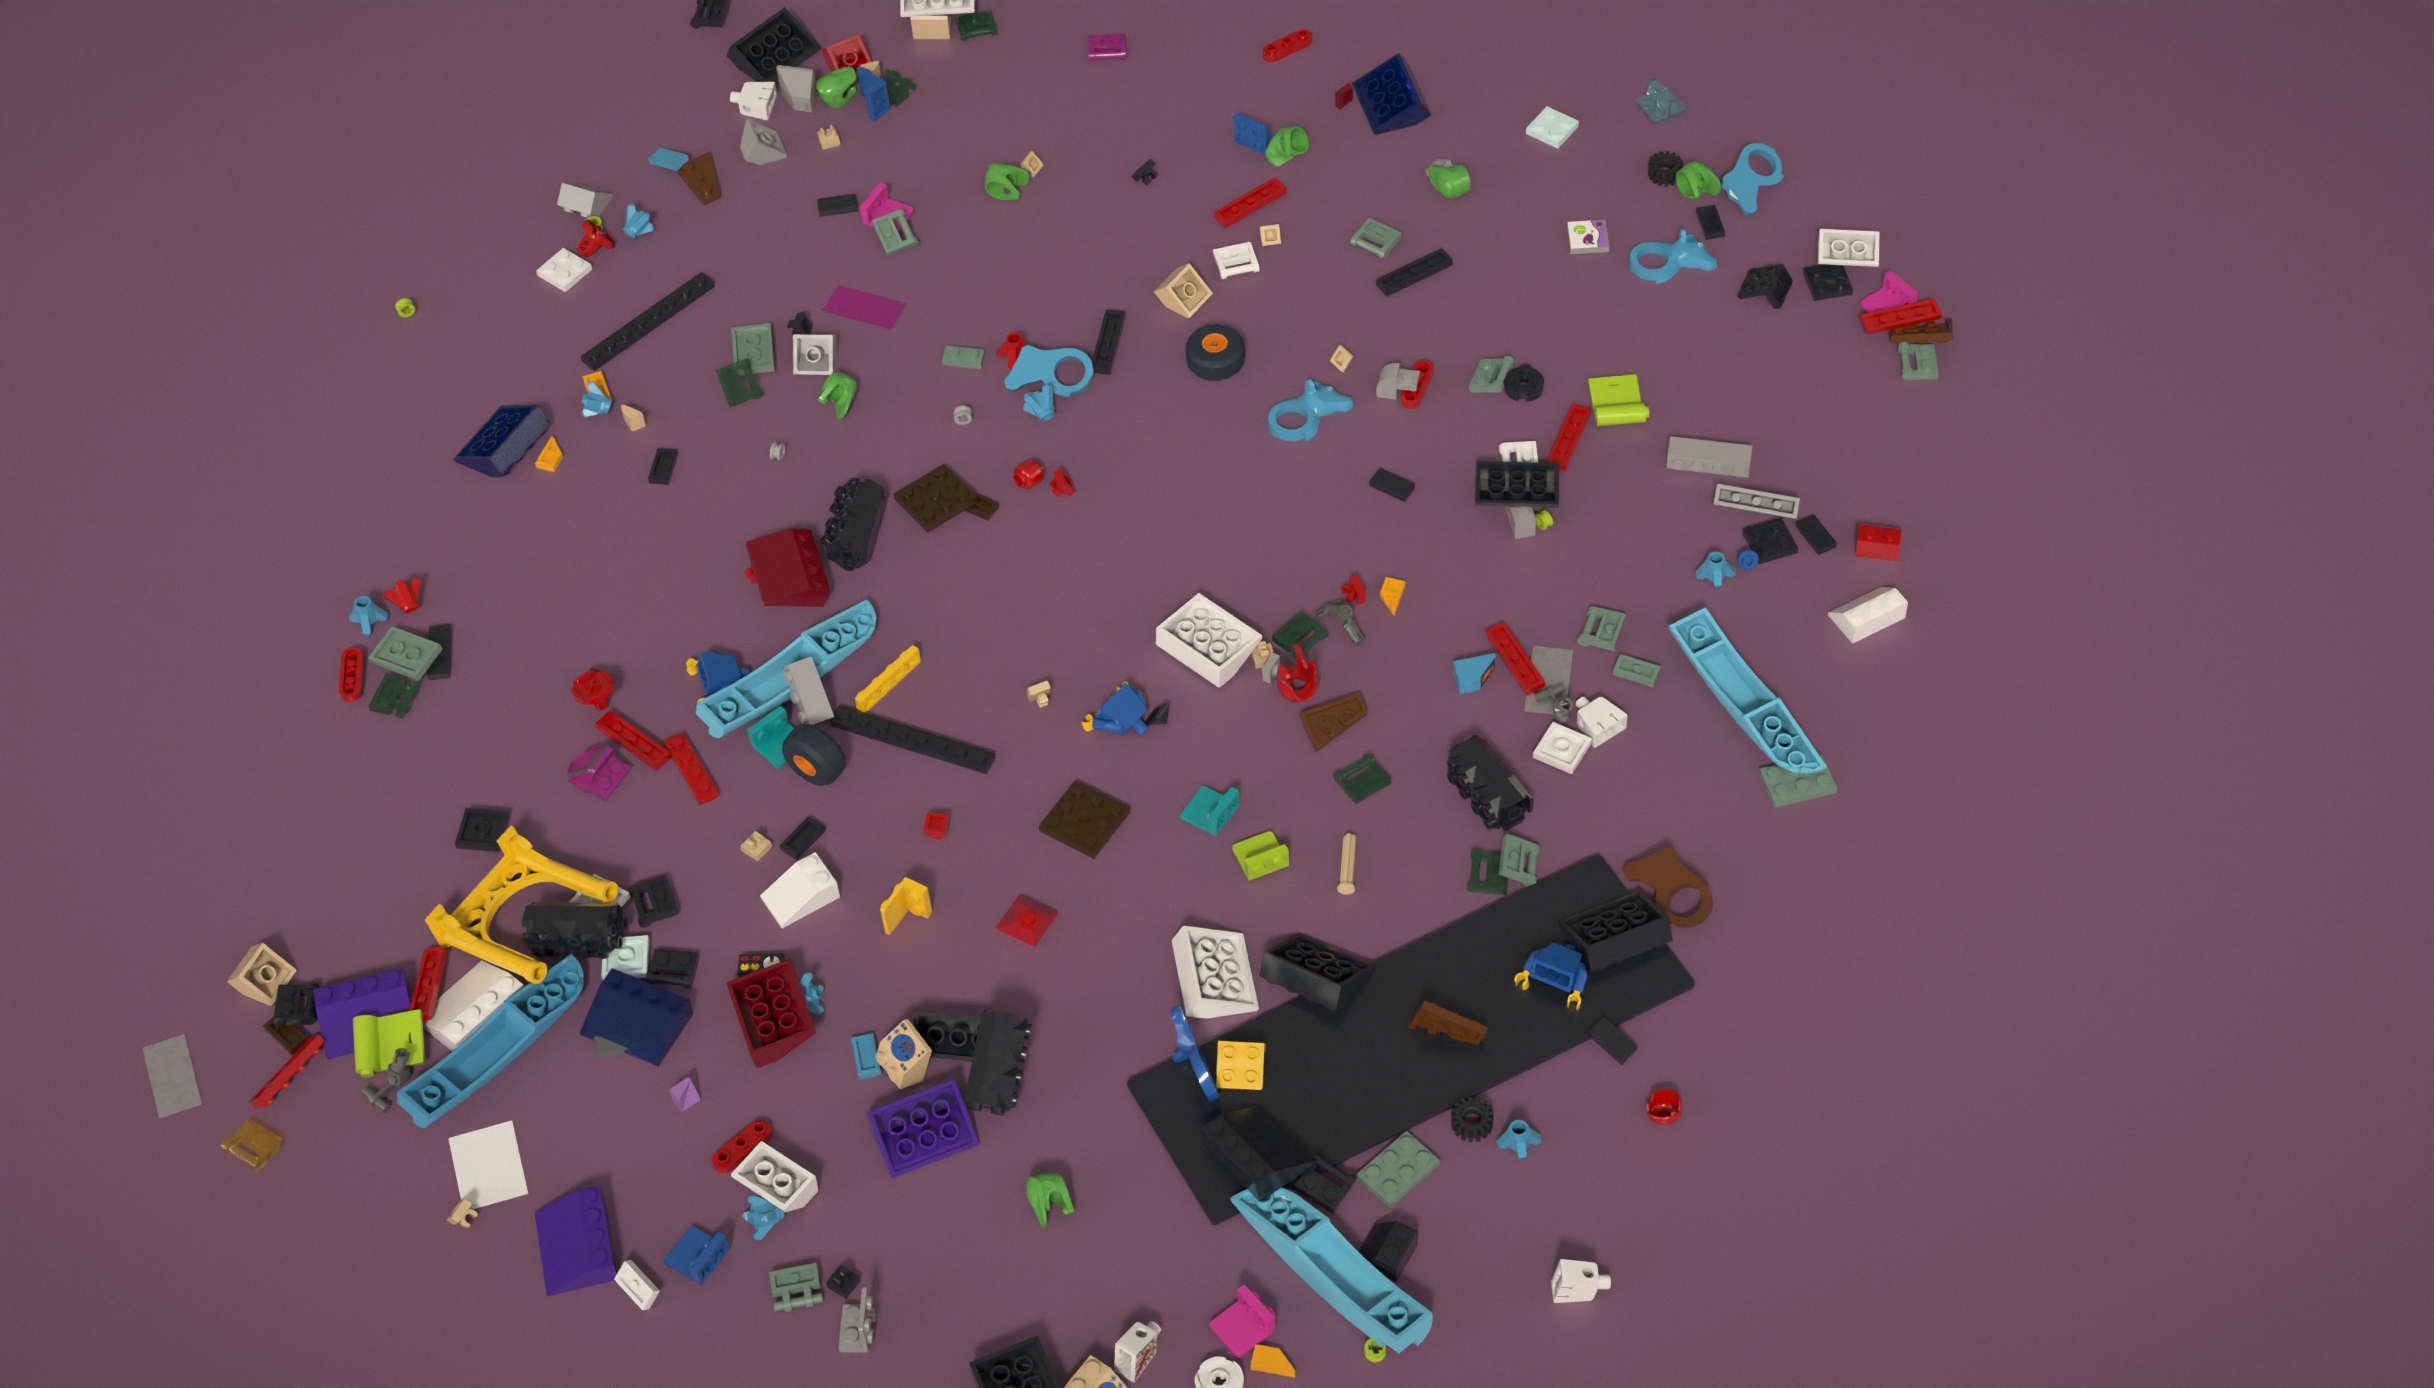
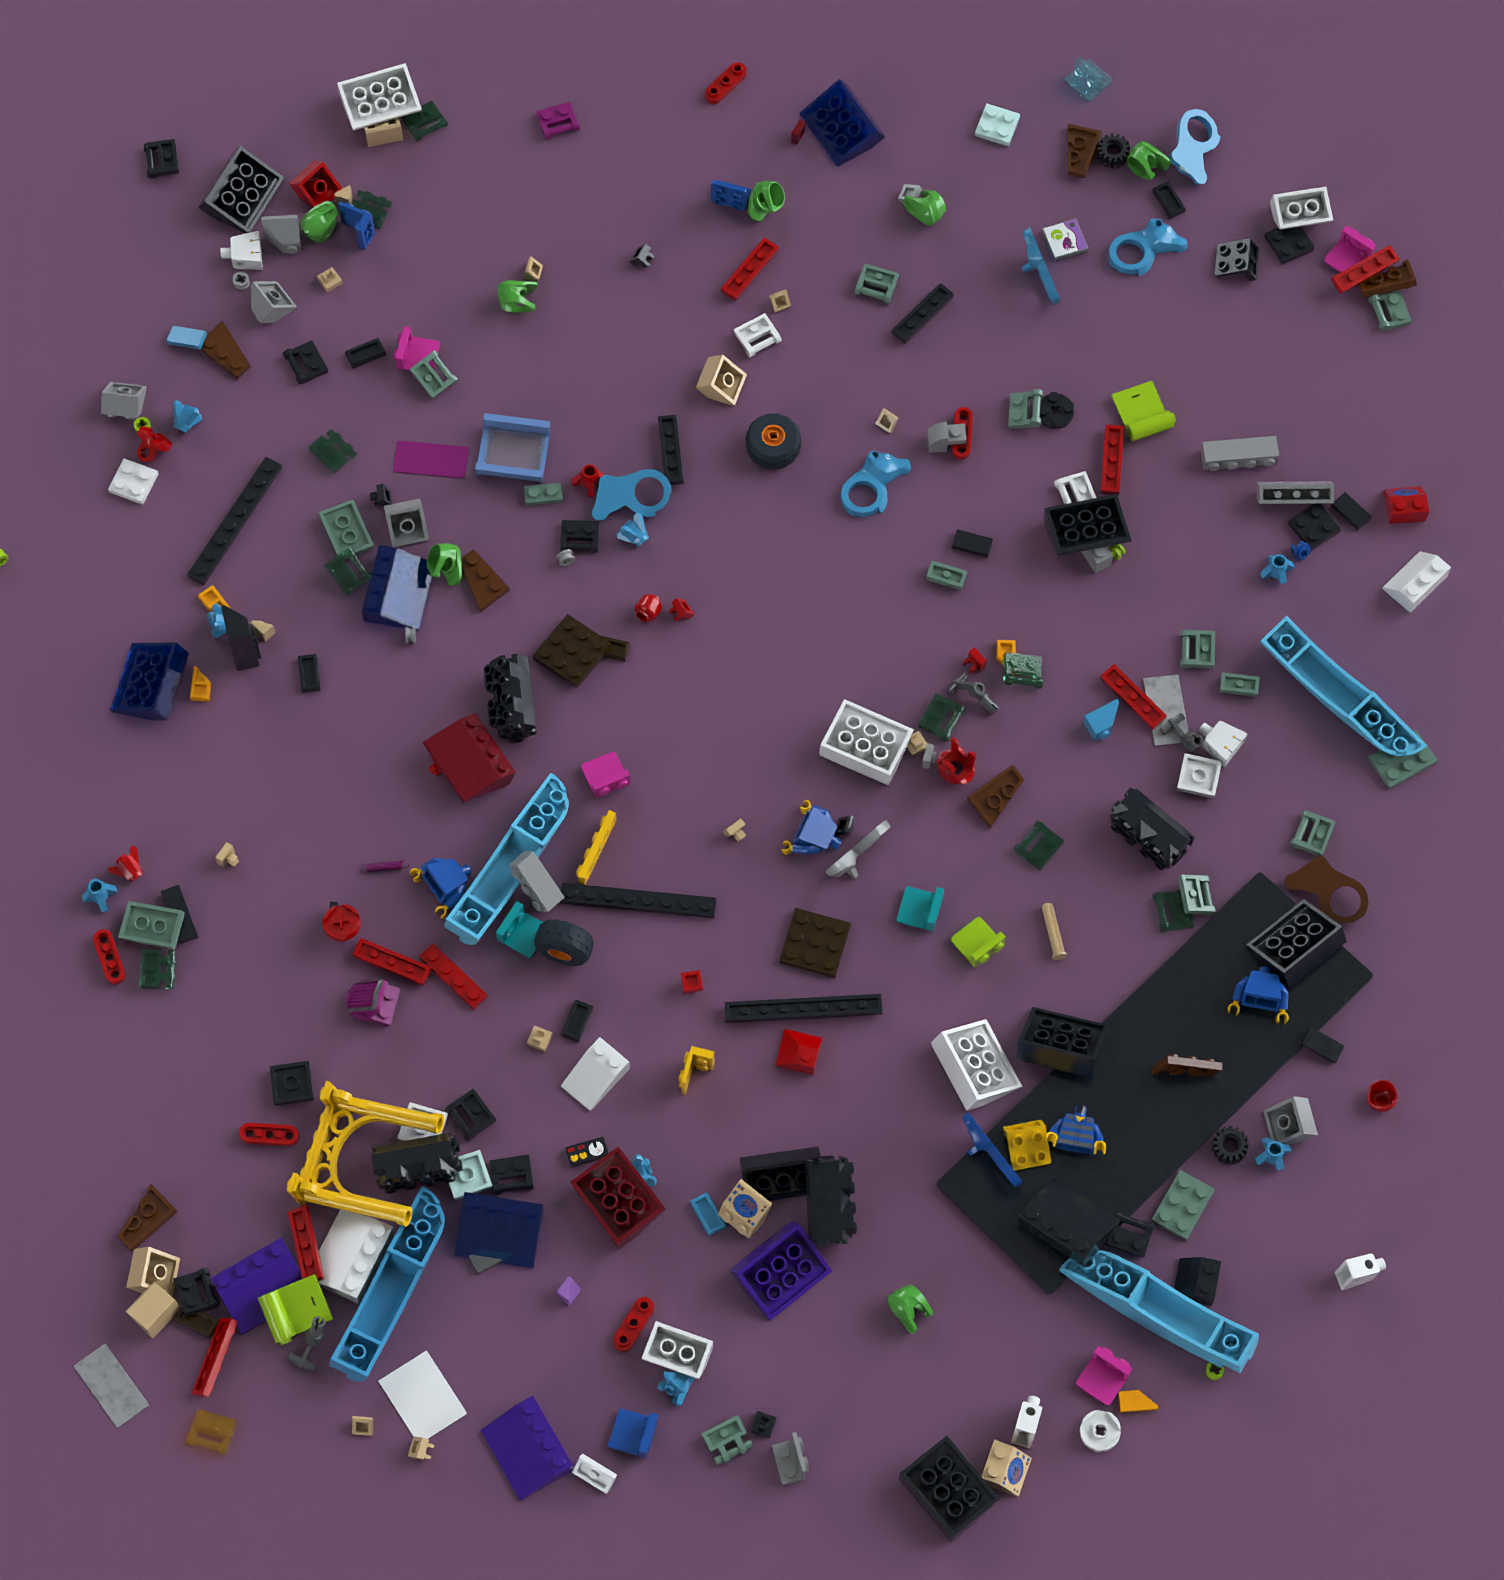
camera: 20 degrees left, 15 degrees up
(243, 1009) = (153, 1309): none -> tan slope
(281, 923) = (149, 1216): none -> reddish brown wing
(410, 1176) = (362, 1426): none -> tan slope
(432, 867) = (260, 1131): none -> red plate
(508, 608) = (227, 855): none -> tan tile
(599, 412) = (241, 639): none -> black slope
(663, 652) = (384, 866): none -> magenta piece
(738, 123) = (243, 276): none -> light grey bush
(764, 283) = (328, 454): none -> clear green plate
(780, 408) = (397, 589): none -> clear blue slope
(781, 201) = (310, 358): none -> black plate
(871, 420) = (483, 581): none -> reddish brown wing
(924, 616) = (605, 774): none -> dark pink bracket
(950, 309) = (513, 447): none -> piece
(991, 396) = (580, 531): none -> black plate
(1047, 877) = (803, 1008): none -> black plate
(1143, 743) = (848, 861): none -> light grey animal
(1297, 1063) = (1076, 1133): none -> torso
(1353, 507) = (946, 575): none -> sand green plate
(1403, 604) = (1023, 665): none -> clear green plate
(1549, 249) = (1036, 262): none -> dark azure animal
(1551, 1109) = (1291, 1121): none -> light grey slope
(1632, 161) = (1081, 149): none -> reddish brown wing
(1677, 833) = (1319, 835): none -> sand green plate

